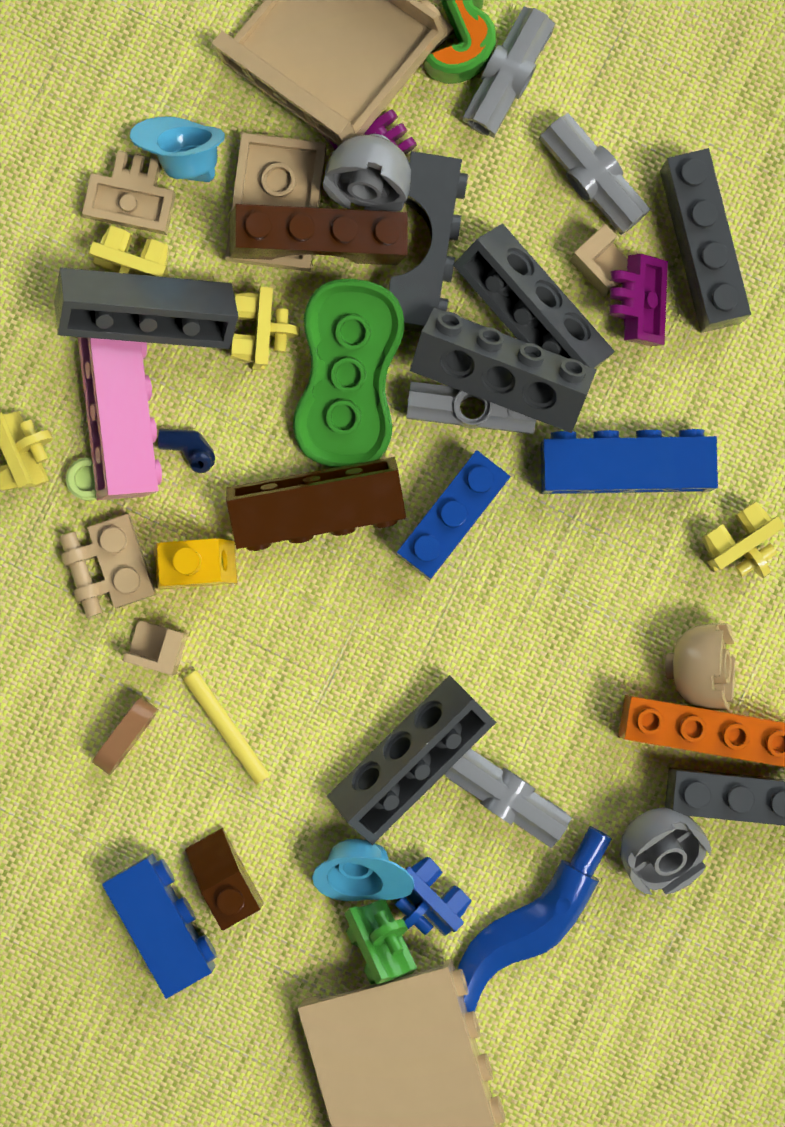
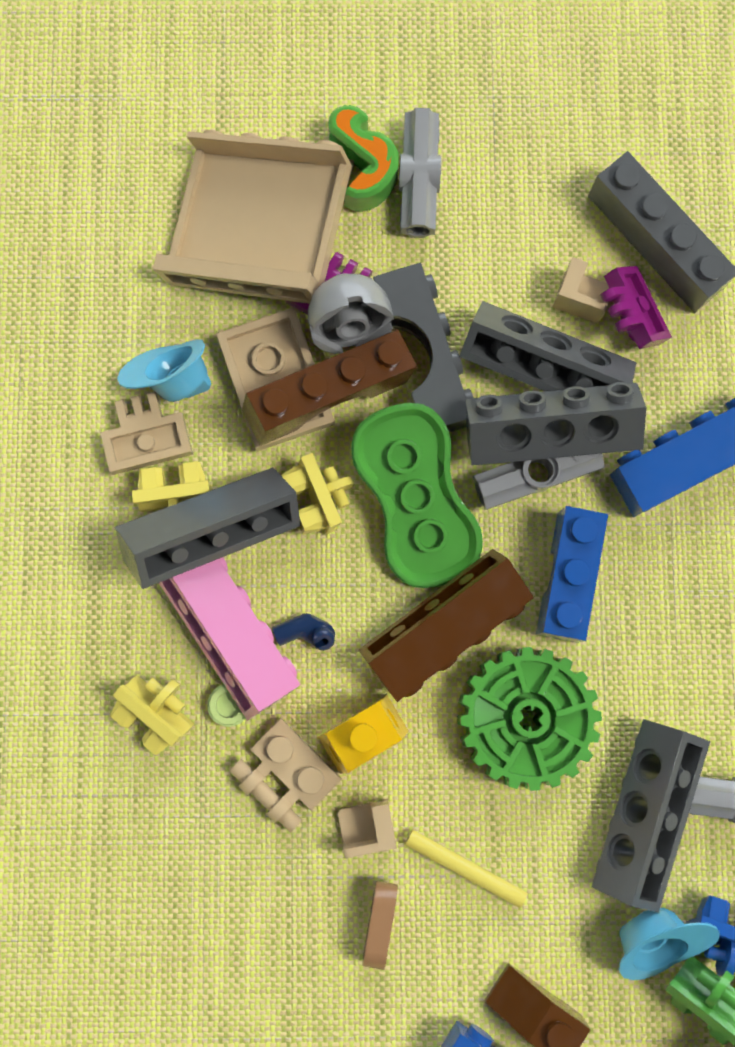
camera: 25 degrees left, 5 degrees down
(320, 603) = (562, 718): none -> bright green piece
(594, 173) = (537, 222): light grey piece -> none

